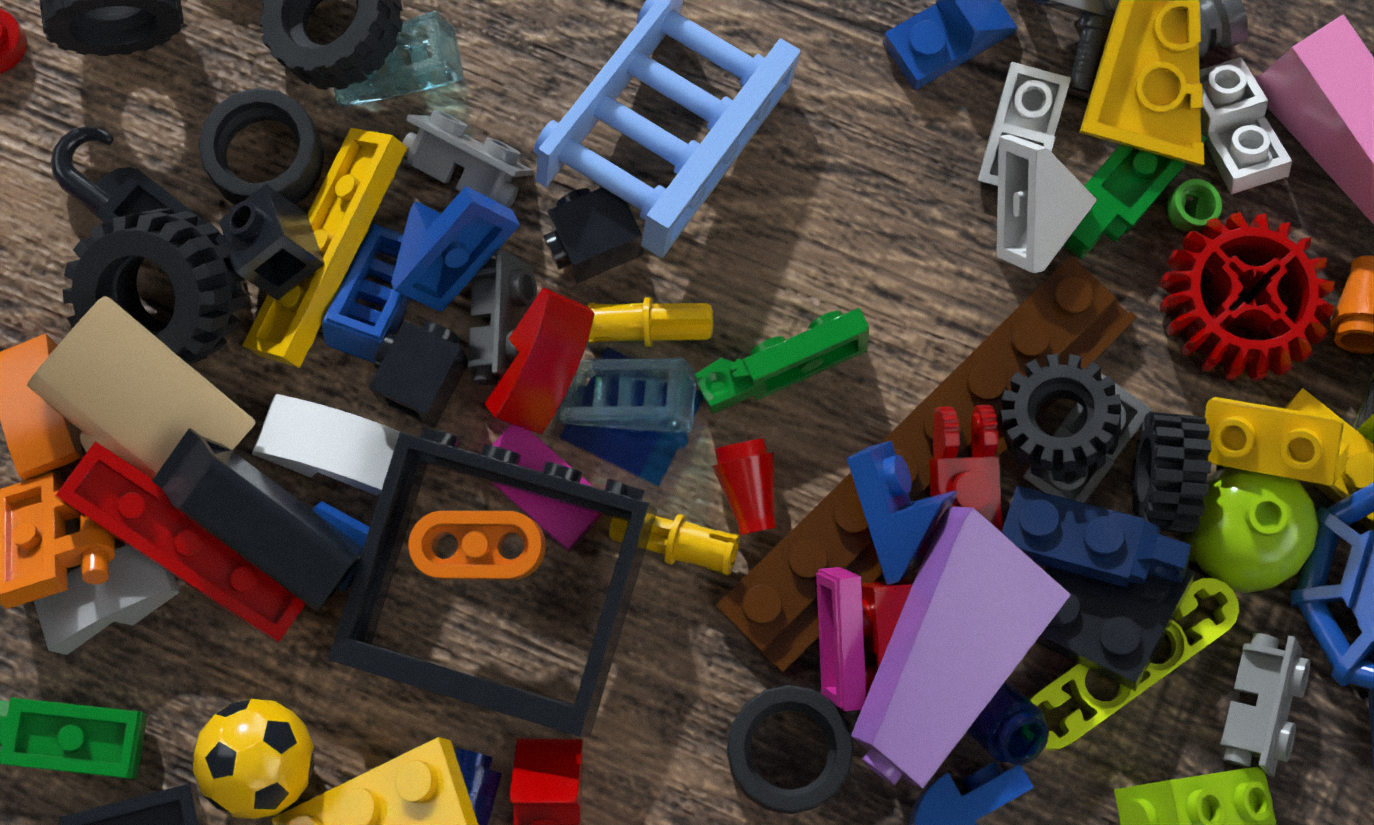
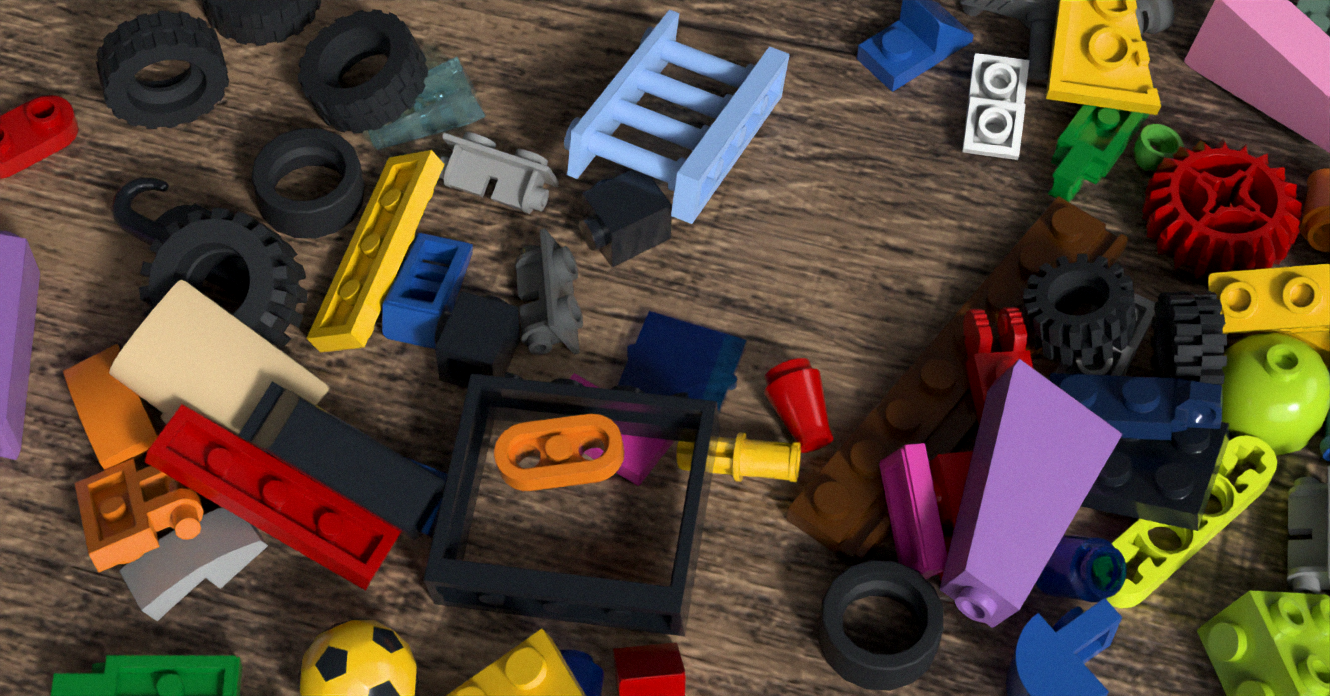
camera: 10 degrees left, 20 degrees down
(271, 242) = (328, 243): black brick -> none
(326, 441) = (400, 405): white slope -> none
(449, 248) = (493, 240): blue slope -> none
(550, 350) = (593, 327): red slope -> none
(651, 322) = (685, 283): yellow axle -> none
(674, 417) = (697, 356): clear light blue slope -> none
(785, 362) = (818, 300): green hinge -> none
(897, 525) = (951, 408): blue slope -> none
(1036, 204) = (1019, 148): white slope -> none
(1237, 128) = (1184, 95): white slope -> none

